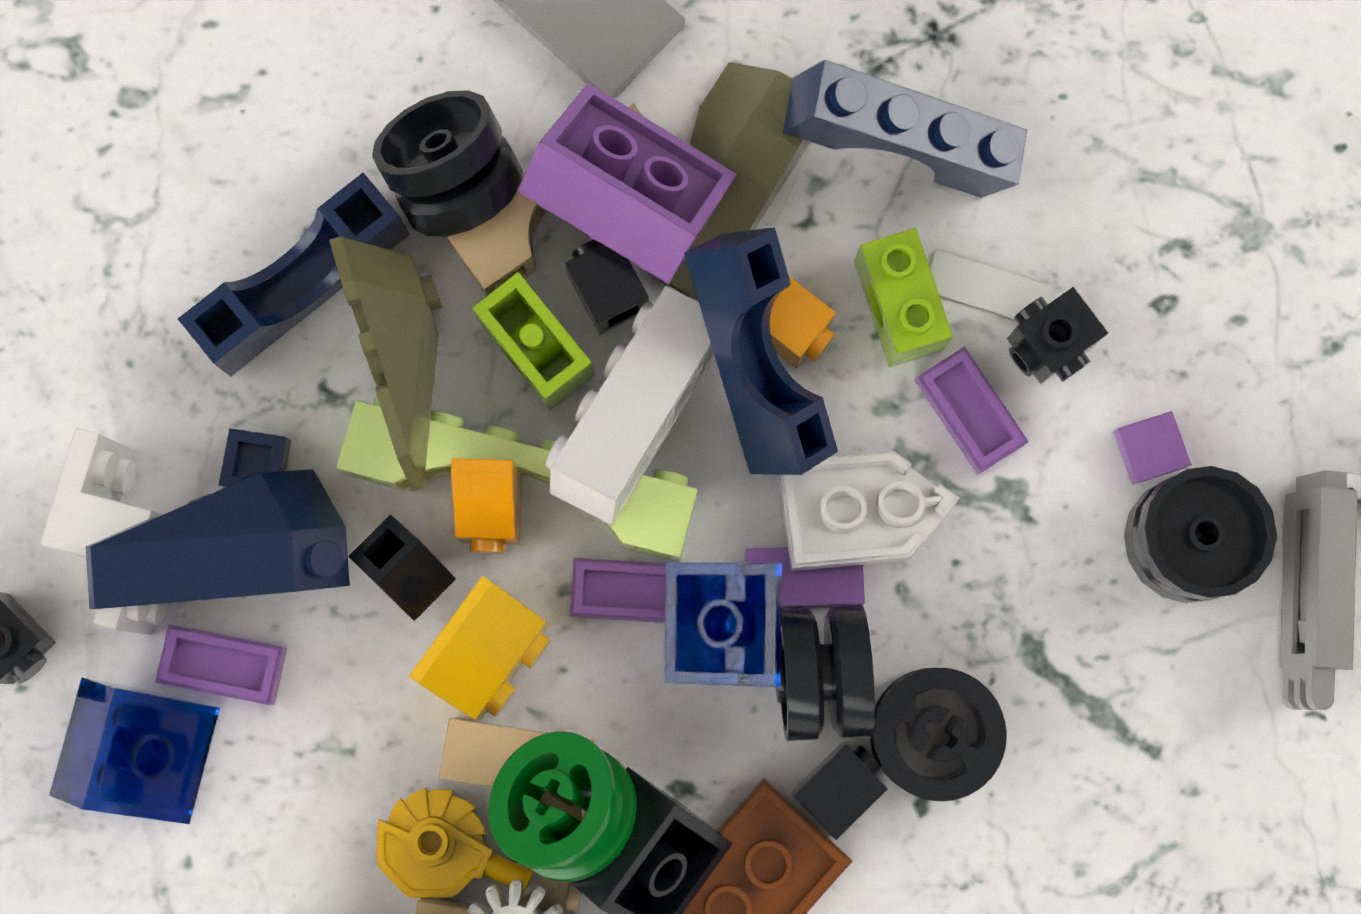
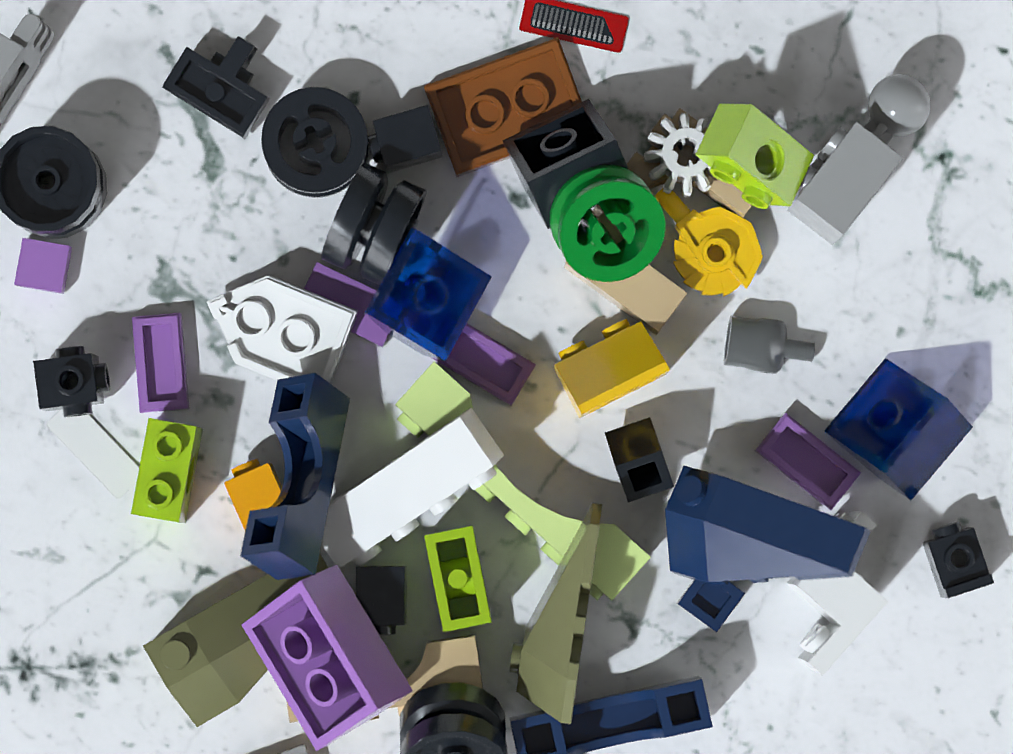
camera: 150 degrees left, 5 degrees up
(332, 766) = (762, 345): none -> dark grey piece
(487, 503) = (555, 472): light orange slope -> none
(857, 110) = (98, 593): arch -> none
(1074, 741) = (219, 86): none -> black hinge

